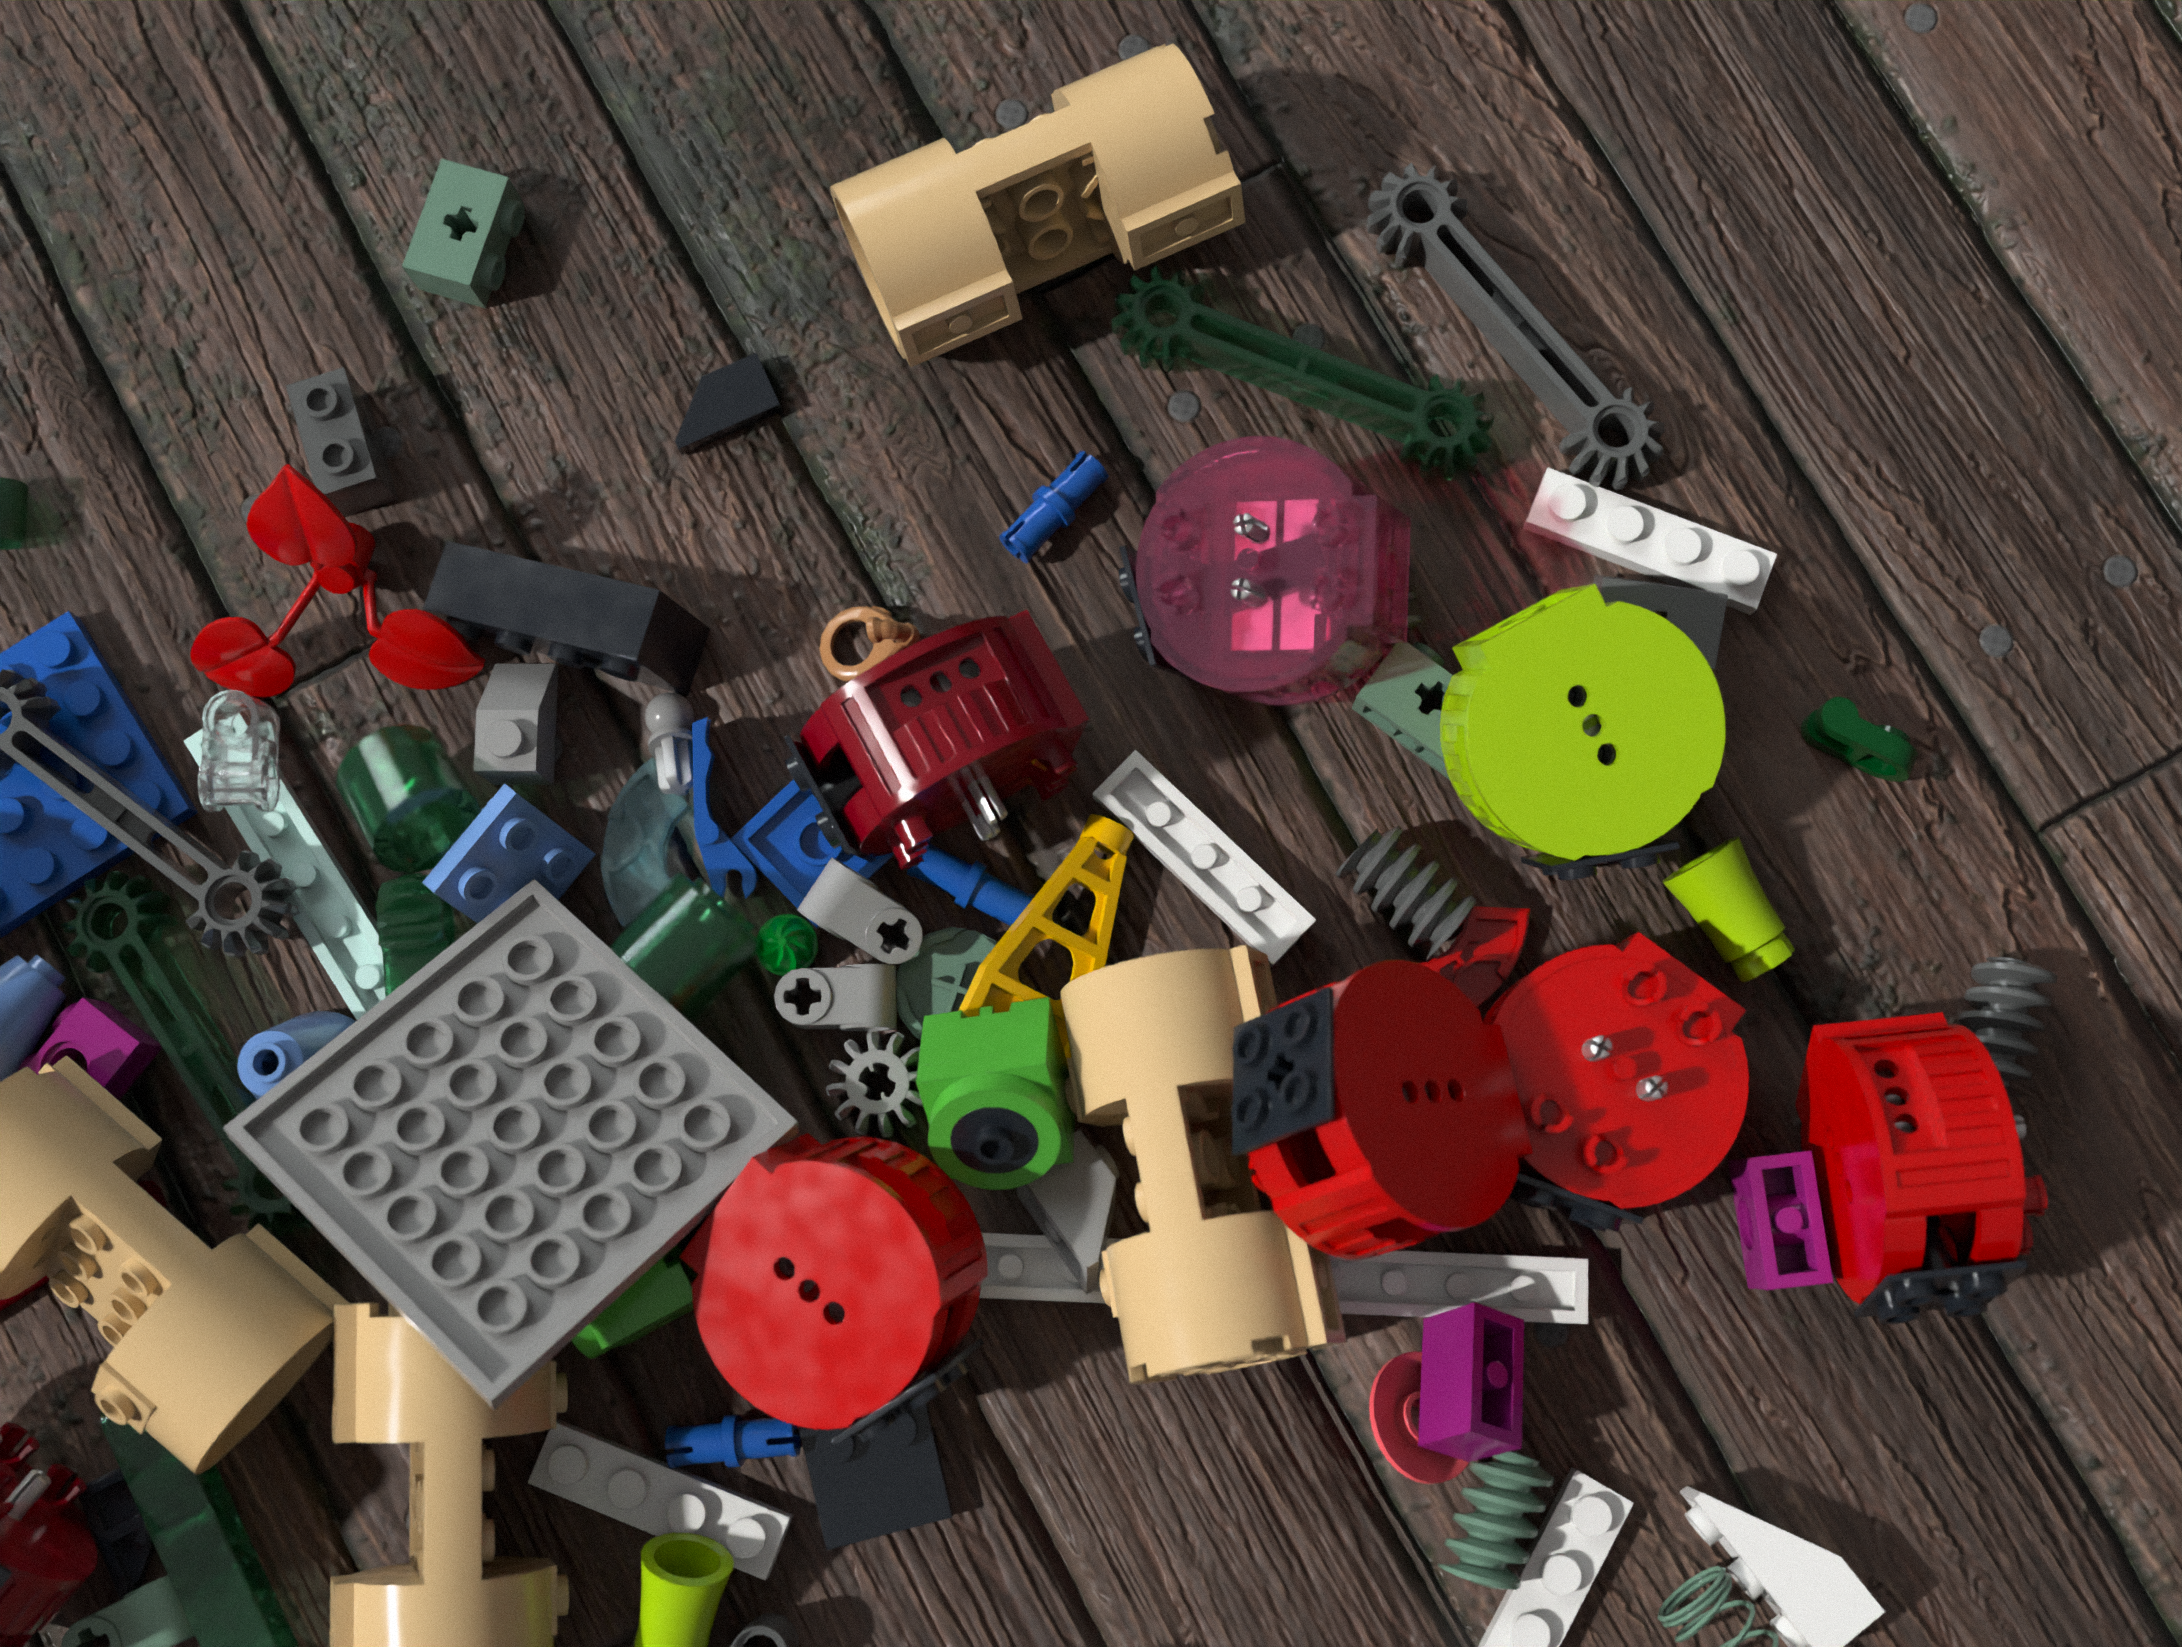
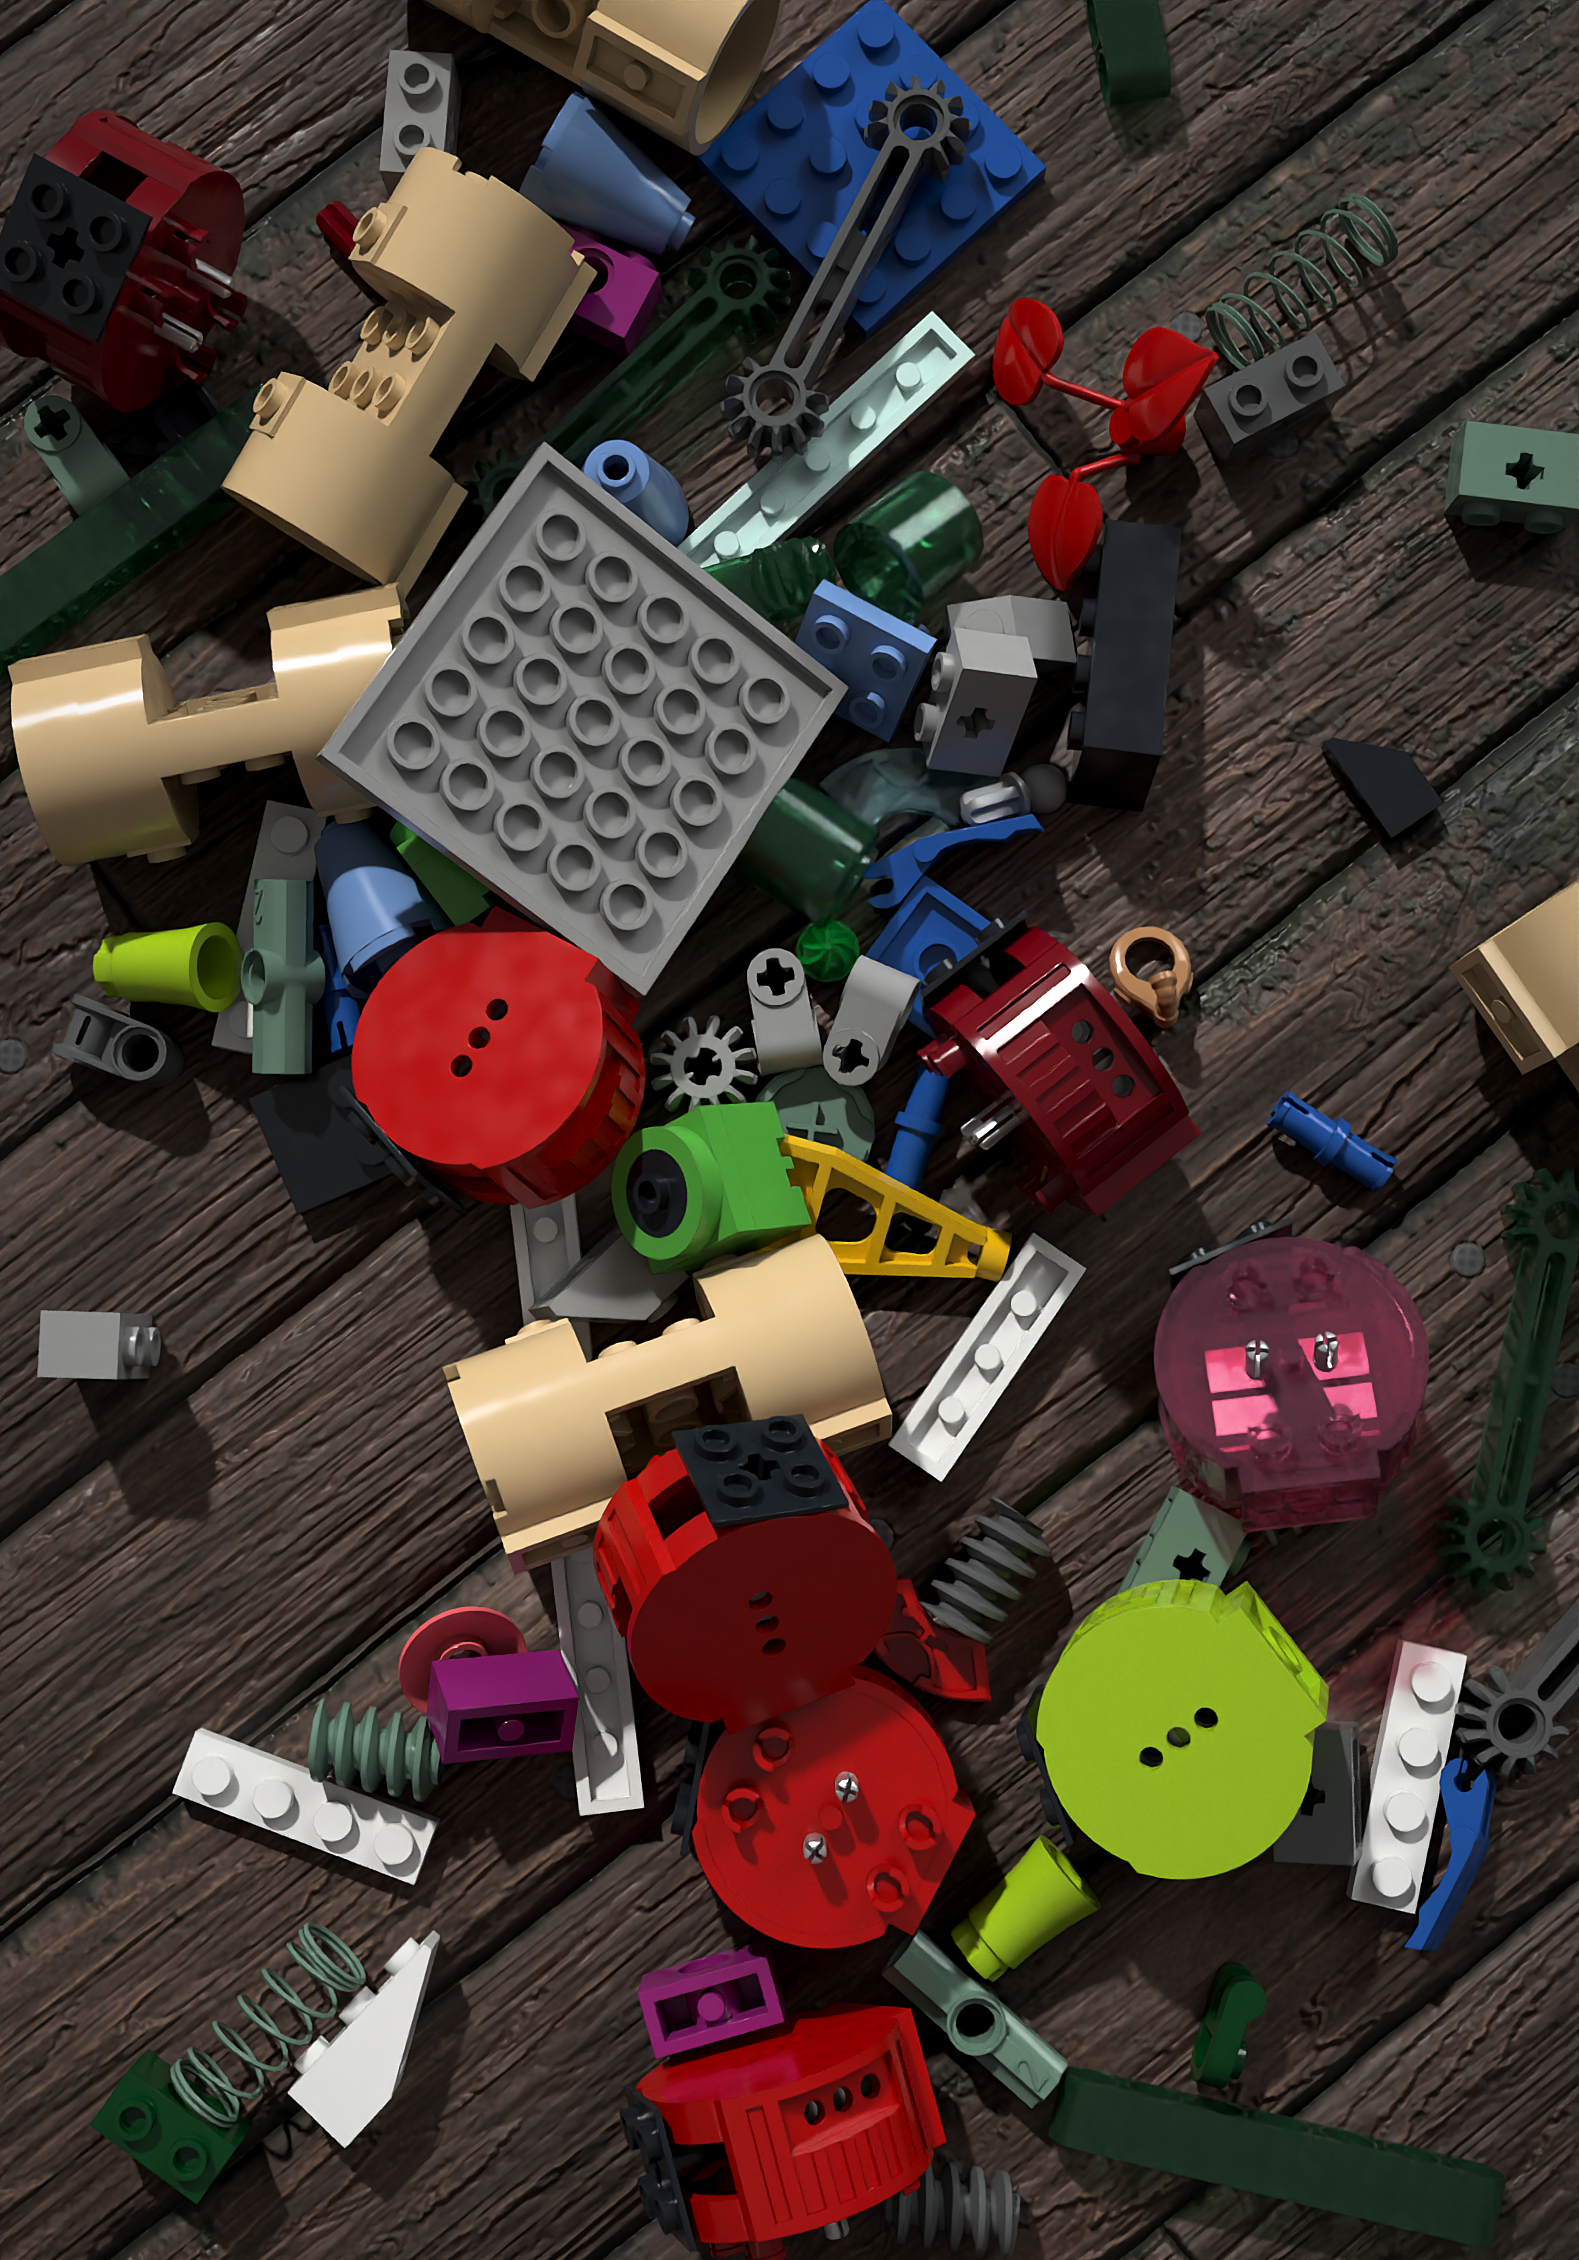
camera: 80 degrees right, 5 degrees up
(240, 767) = (920, 373): clear piece -> none
(260, 450) = (1222, 336): none -> sand green piece
(573, 758) = (975, 702): none -> light grey brick
(655, 1388) = (371, 904): none -> medium blue cone
(709, 1492) = (282, 976): none -> sand green piece
(1700, 491) = (1468, 1824): none -> blue arm
(1854, 950) = (1002, 2046): none -> sand green piece
(1983, 718) = (1277, 2156): none -> clear green beam

